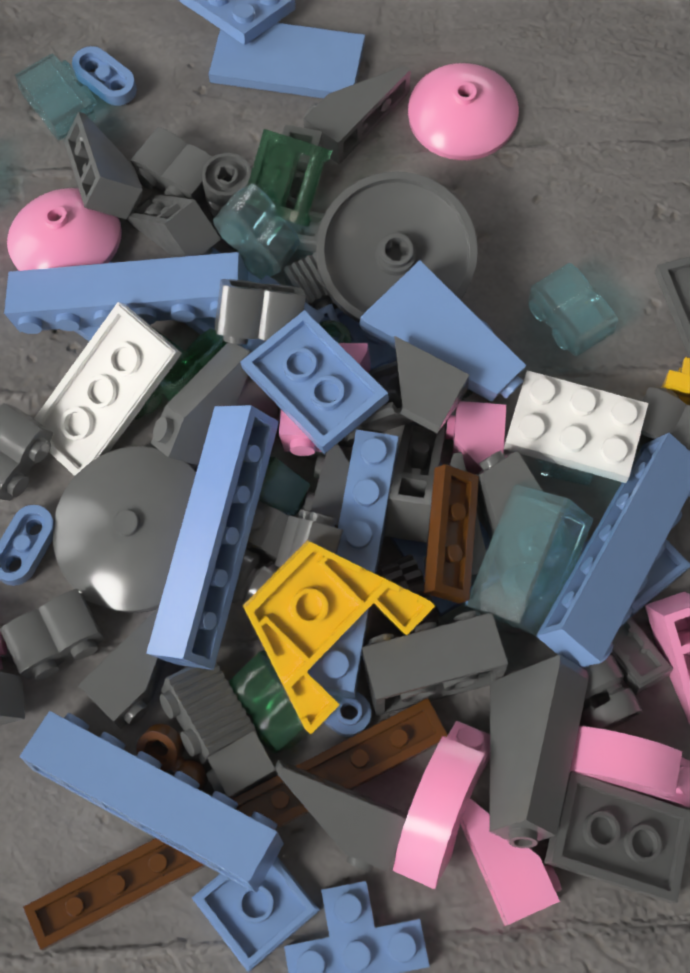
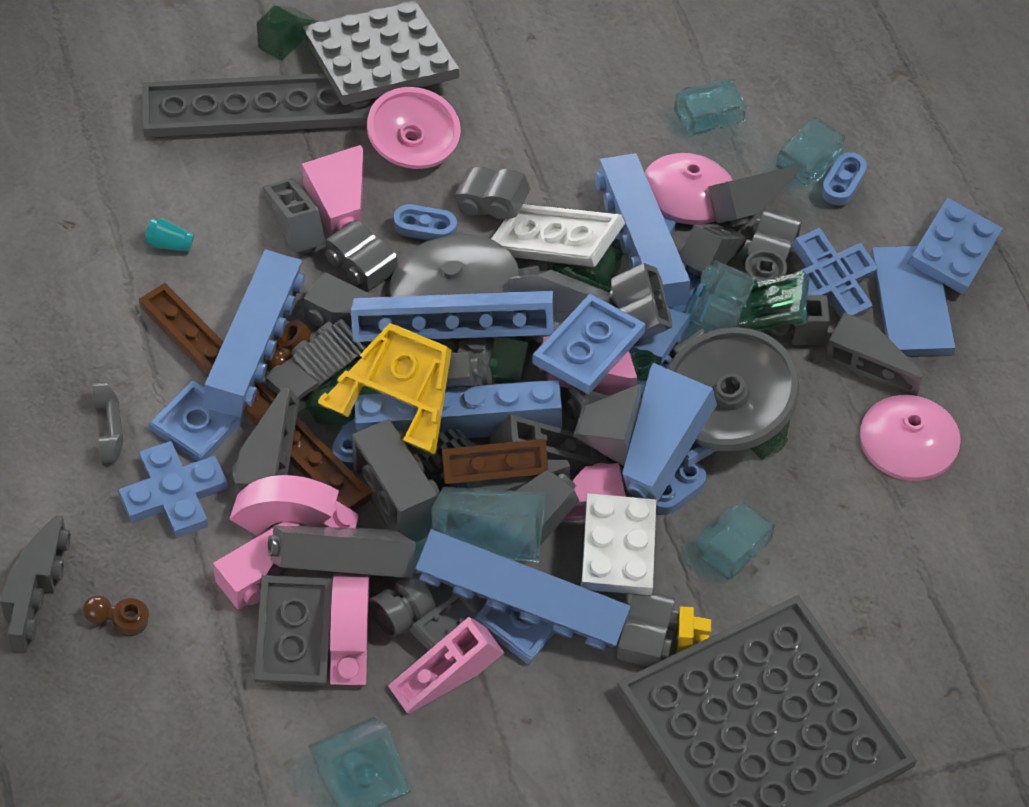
camera: 70 degrees right, 15 degrees down
(238, 116) = (835, 272): none -> medium blue plate

